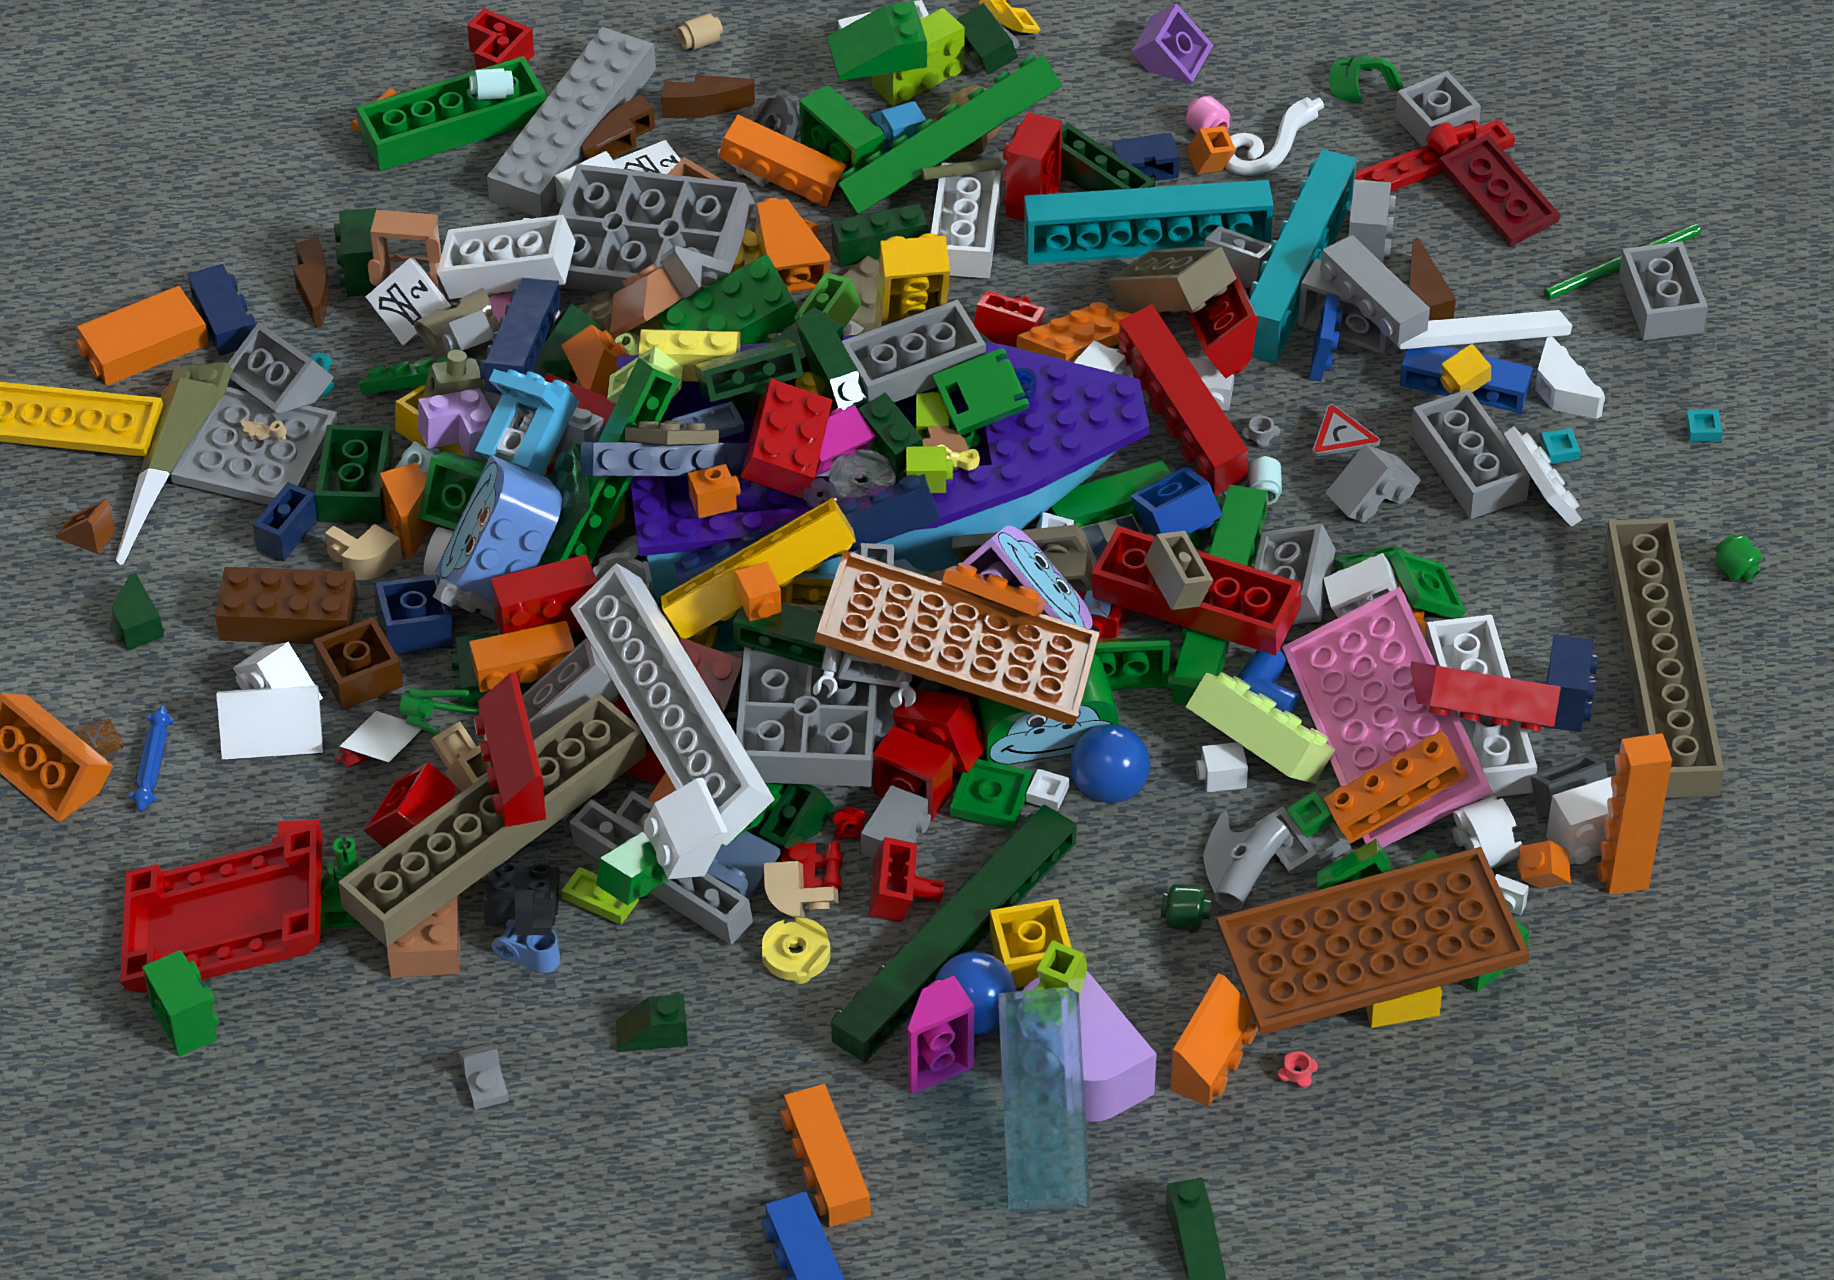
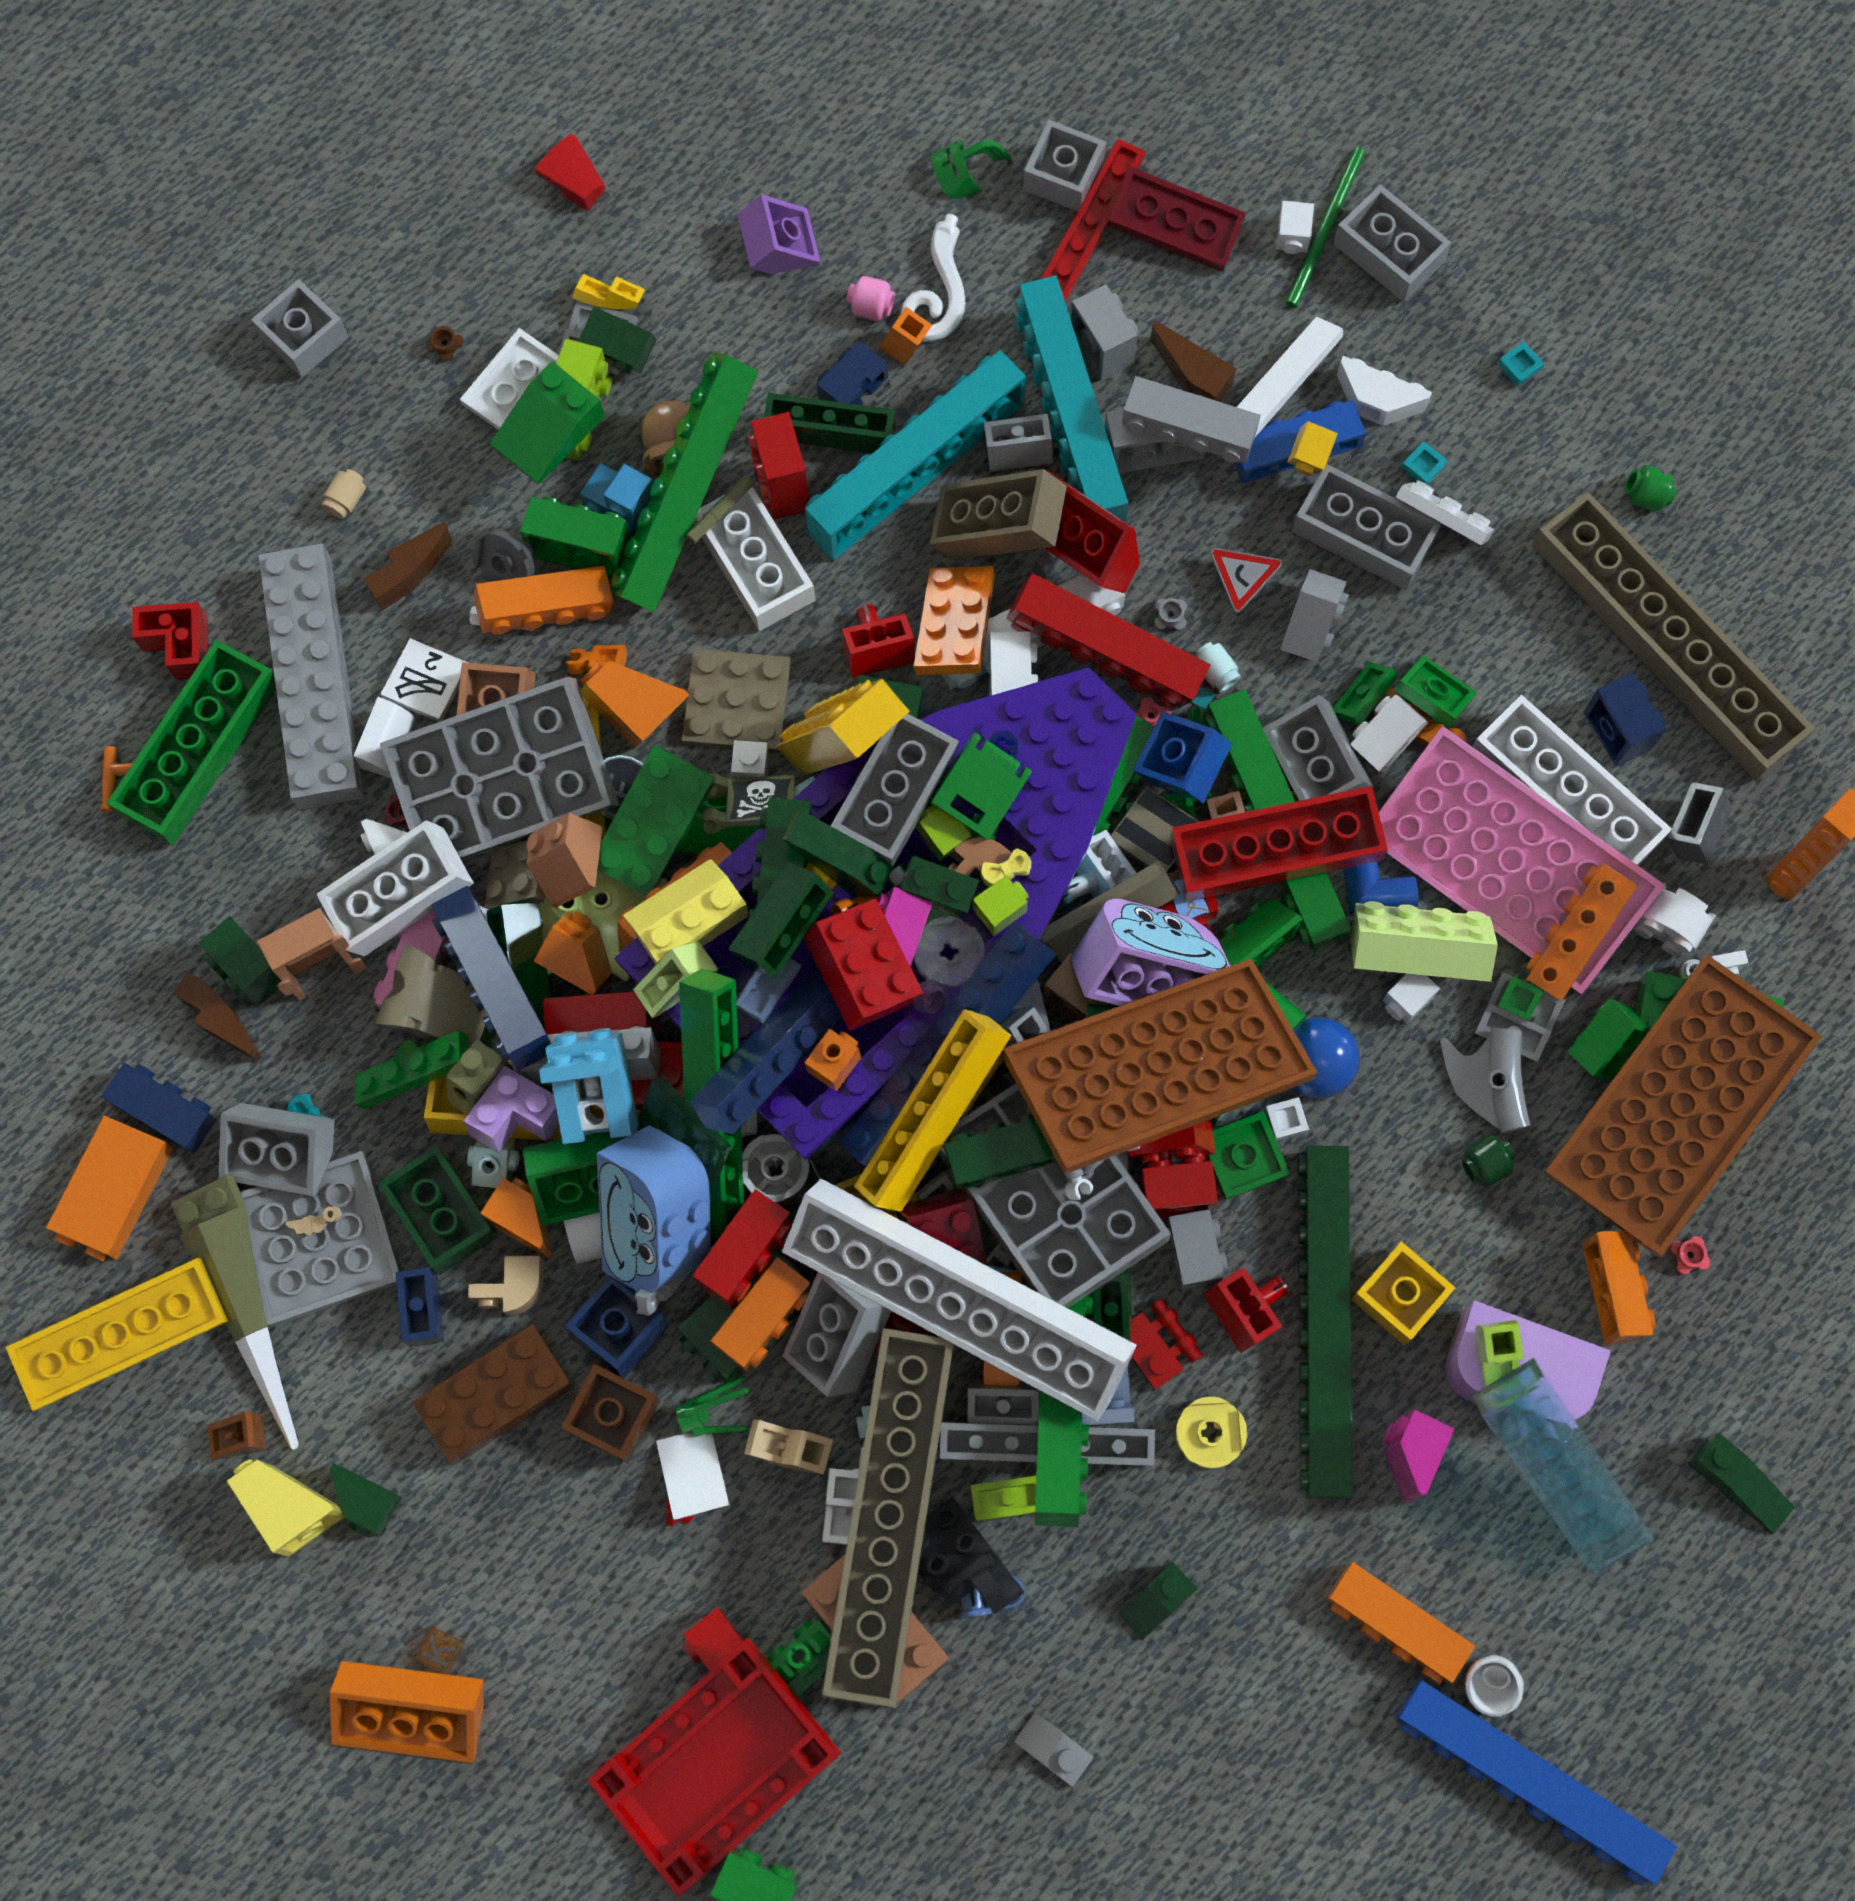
camera: 35 degrees left, 25 degrees up
(76, 578) = (282, 1507): none -> light yellow slope
(151, 758) = (503, 1638): blue wheel -> none
(270, 722) = (586, 1534): white tile -> none
(272, 668) = (555, 1484): white brick -> none
(405, 299) = (336, 991): white tile -> none
(409, 803) = (790, 1540): red brick -> none
(468, 334) = (441, 1009): light grey brick -> none
(491, 83) = (218, 697): light aqua brick -> none
(510, 753) = (876, 1463): red slope -> none
(619, 129) = (361, 658): reddish brown slope -> none
(672, 433) = (767, 1039): dark tan plate -> none
(686, 830) = (1090, 1435): white slope -> none
(691, 269) = (597, 810): light grey slope -> none
(758, 591) = (964, 1145): orange brick -> none
(787, 893) = (1175, 1390): tan brick -> none
(835, 297) = (736, 757): bright green brick -> none
(849, 816) = (1155, 1272): red plate -> none
(861, 235) = (689, 621): dark green brick -> none
(862, 1238) = (1494, 1686): none -> white piece
(981, 979) = (1403, 1379): blue piece -> none
(995, 589) = (1146, 987): orange plate -> none
(1178, 570) = (1275, 852): dark tan brick -> none
(1325, 338) = (1160, 484): blue plate -> none
(1445, 136) = (1099, 195): red bar -> none
(1485, 695) = (1596, 794): red slope -> none
(1544, 864) = (1738, 919): orange brick -> none
(1579, 818) = (1745, 851): white brick -> none
(1593, 243) = (1294, 227): none -> white brick

